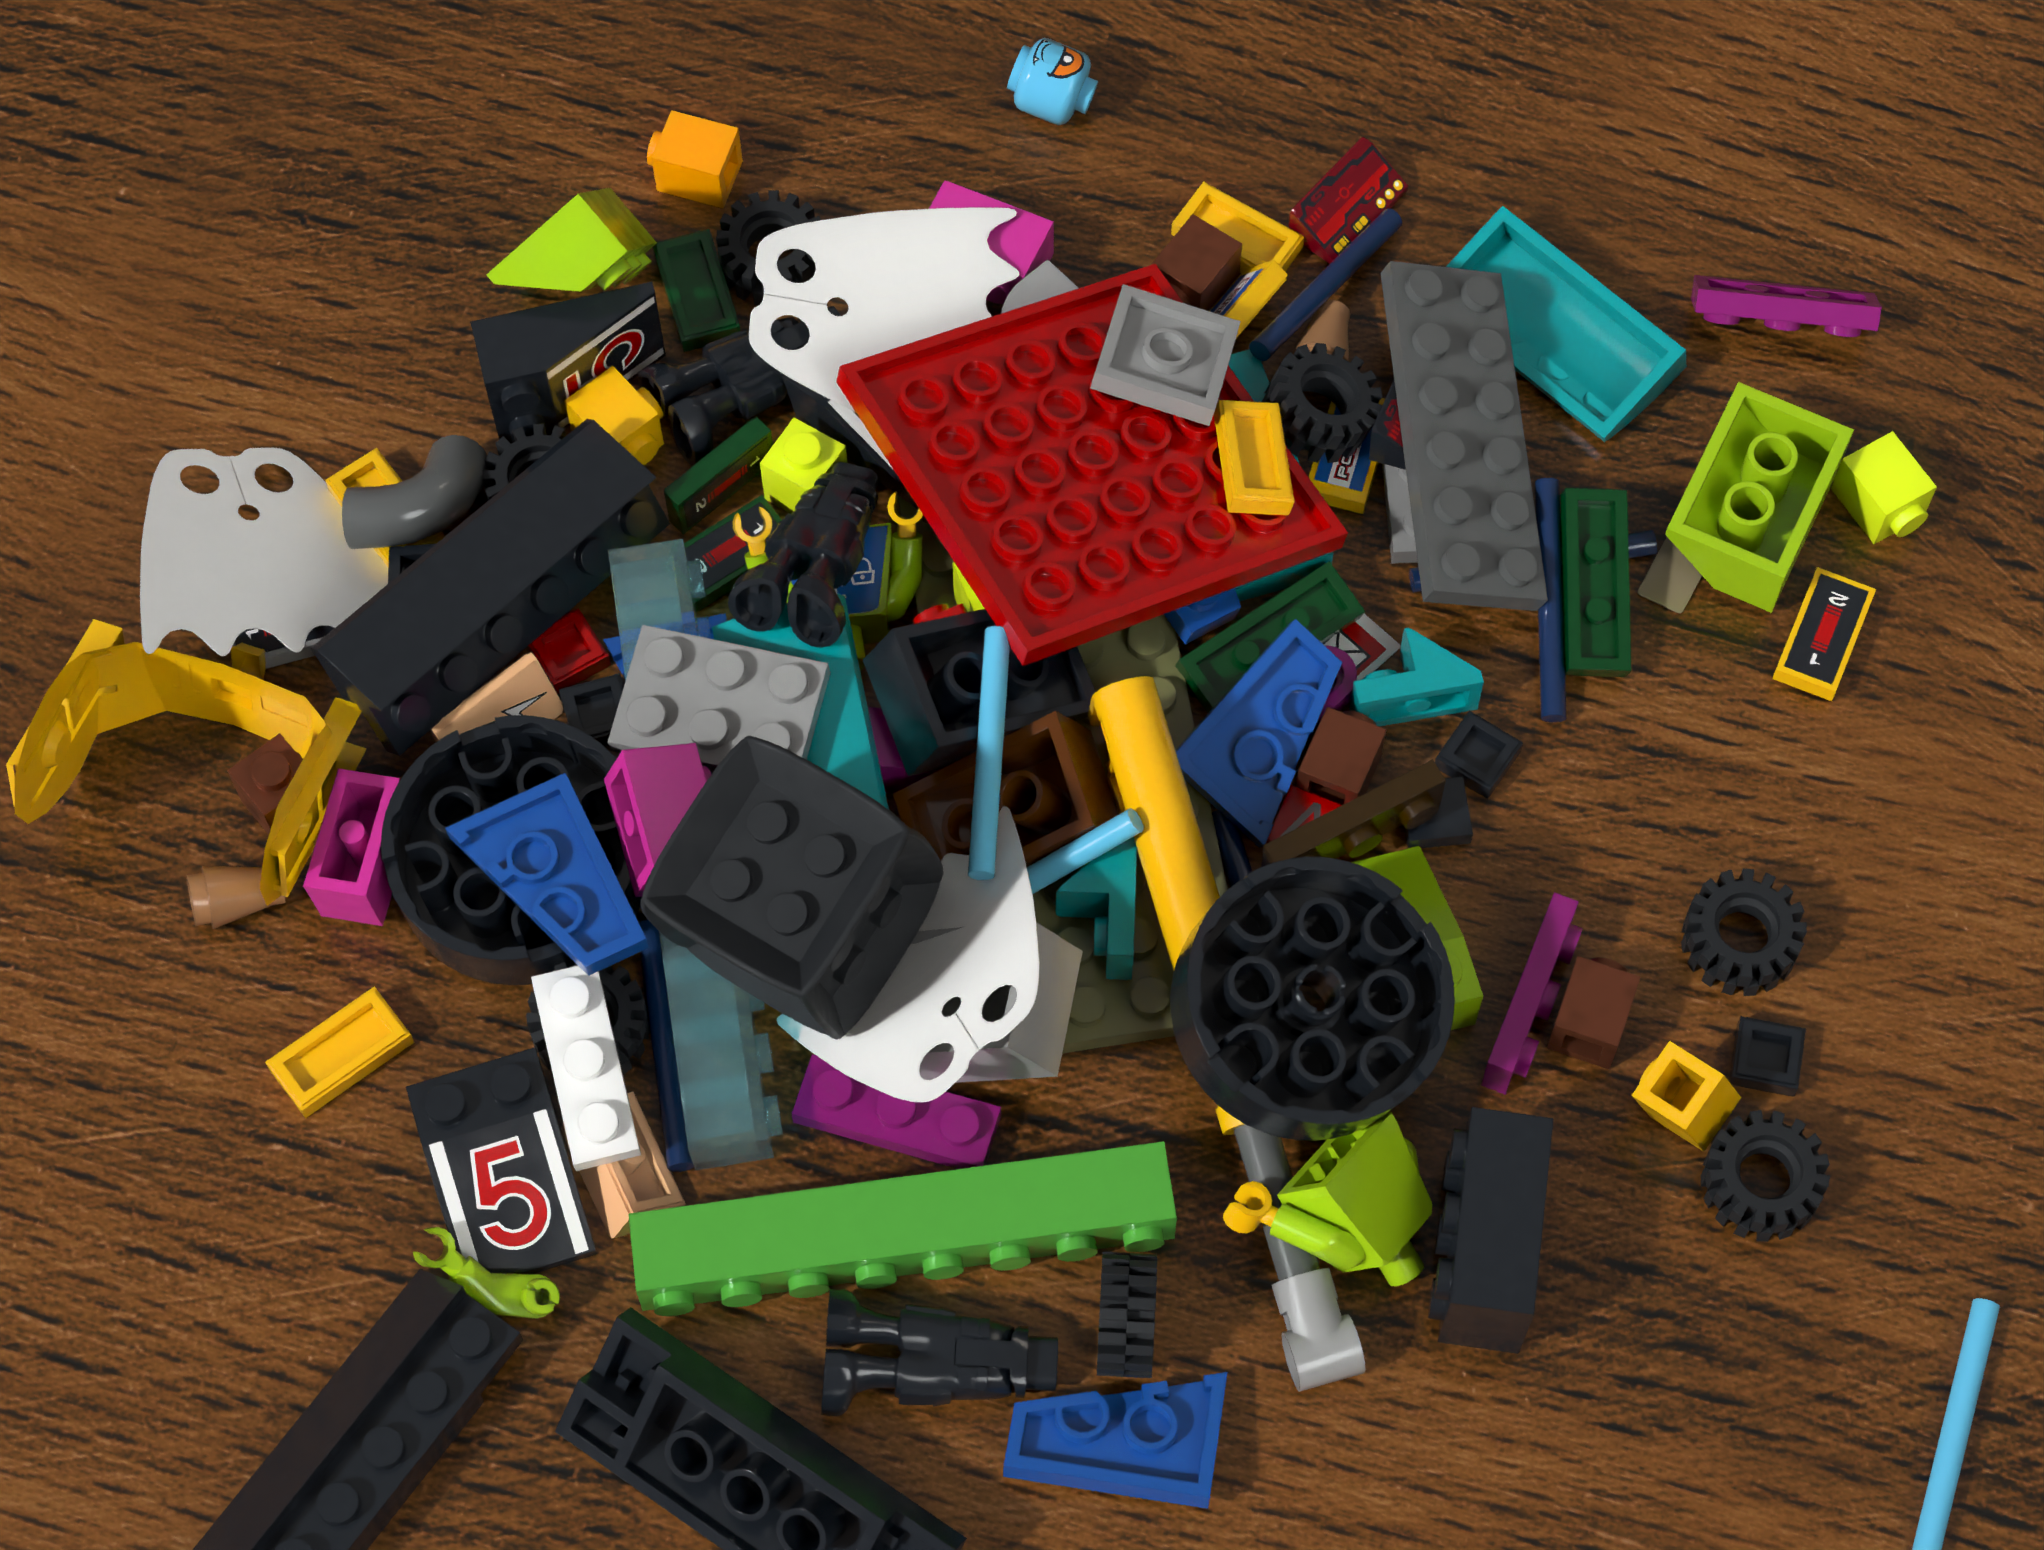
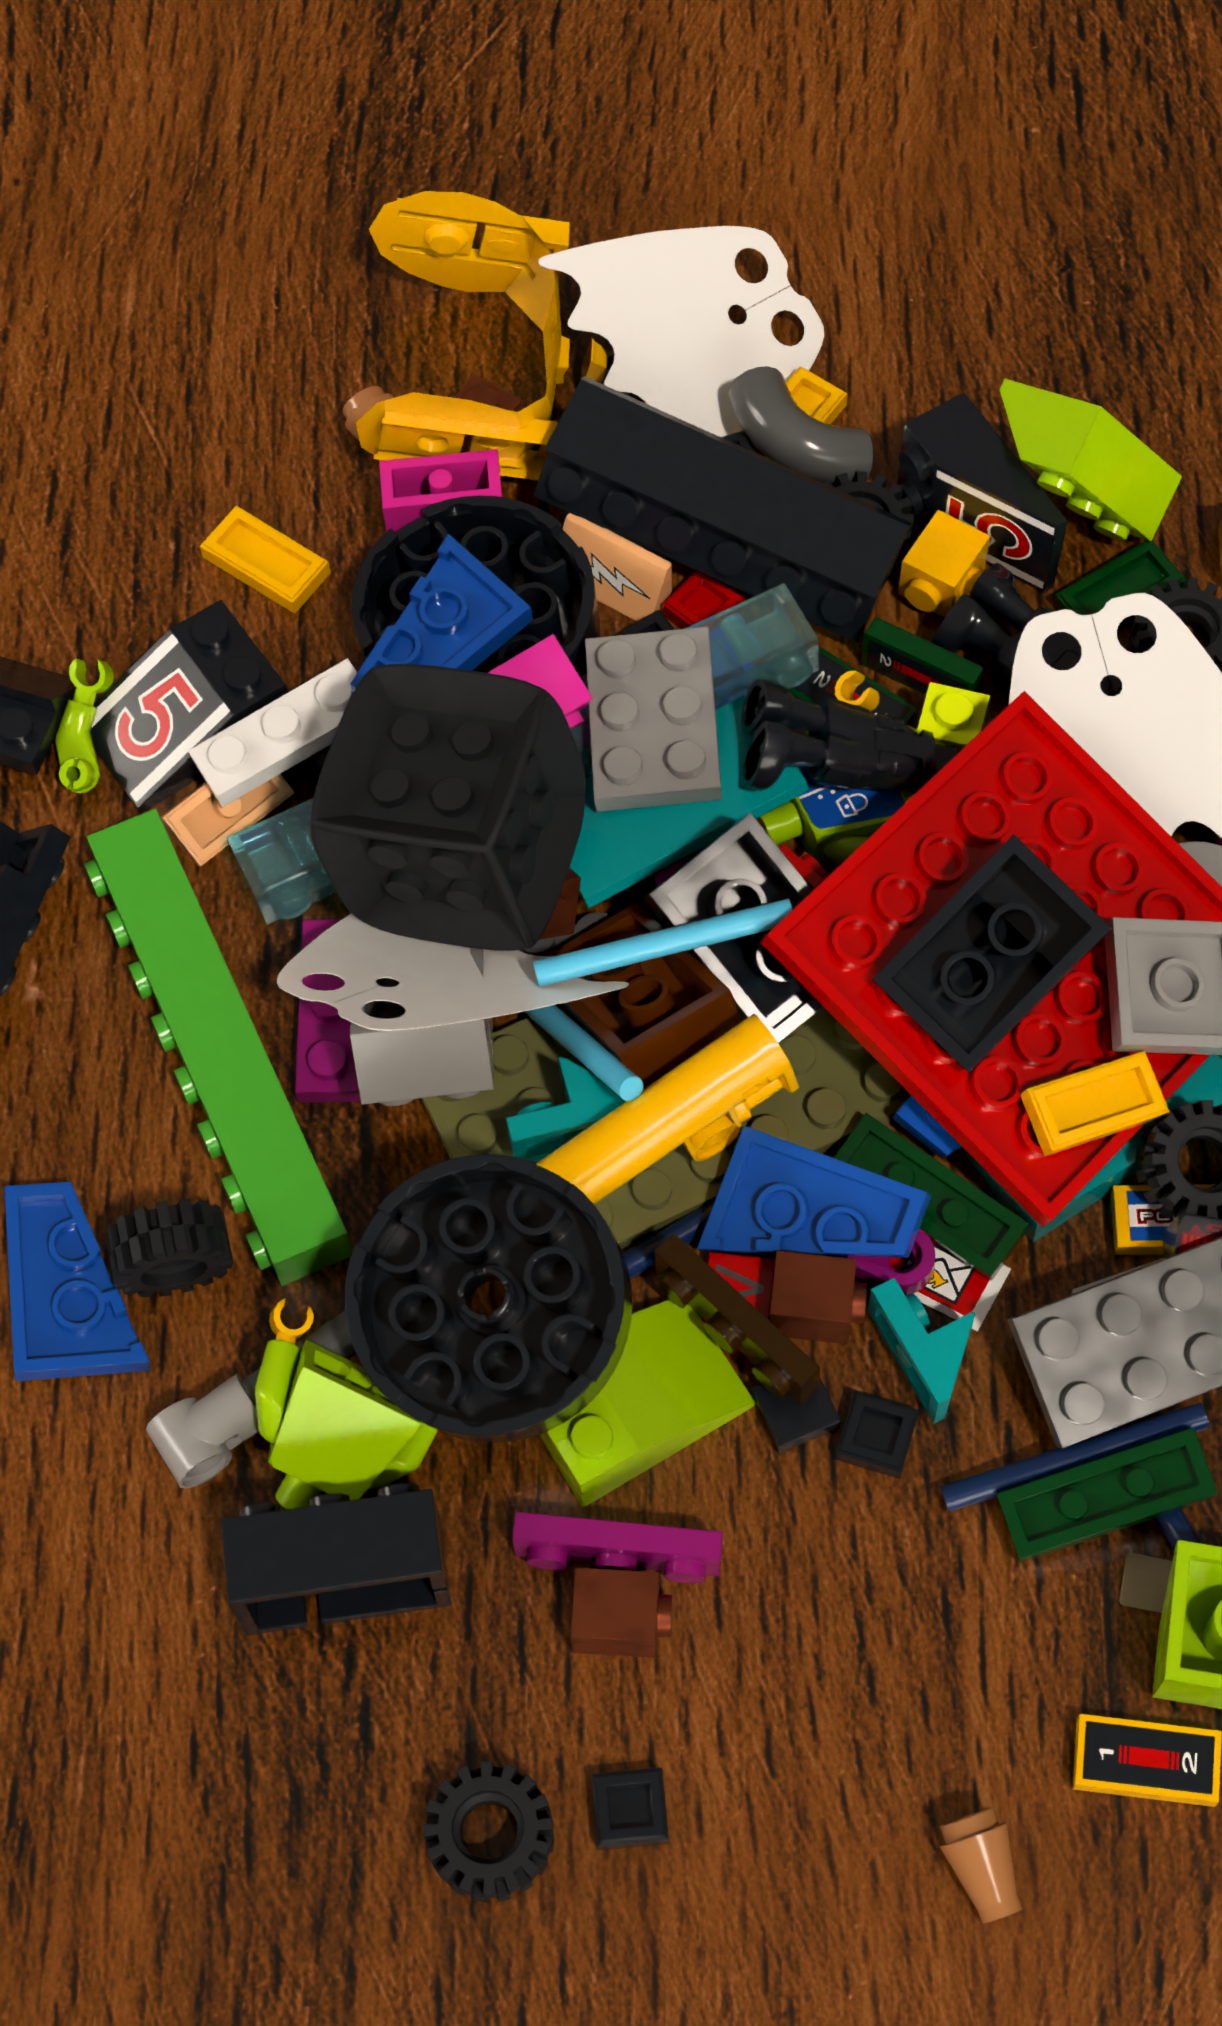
camera: 75 degrees right, 0 degrees up
(939, 1358) = (98, 1105): black piece -> none
(1103, 471) = (992, 953): none -> black slope
(1686, 1095) = (541, 1722): yellow brick -> none
(1752, 898) = (757, 1704): black tyre -> none
(1882, 783) = (983, 1863): none -> medium nougat cone

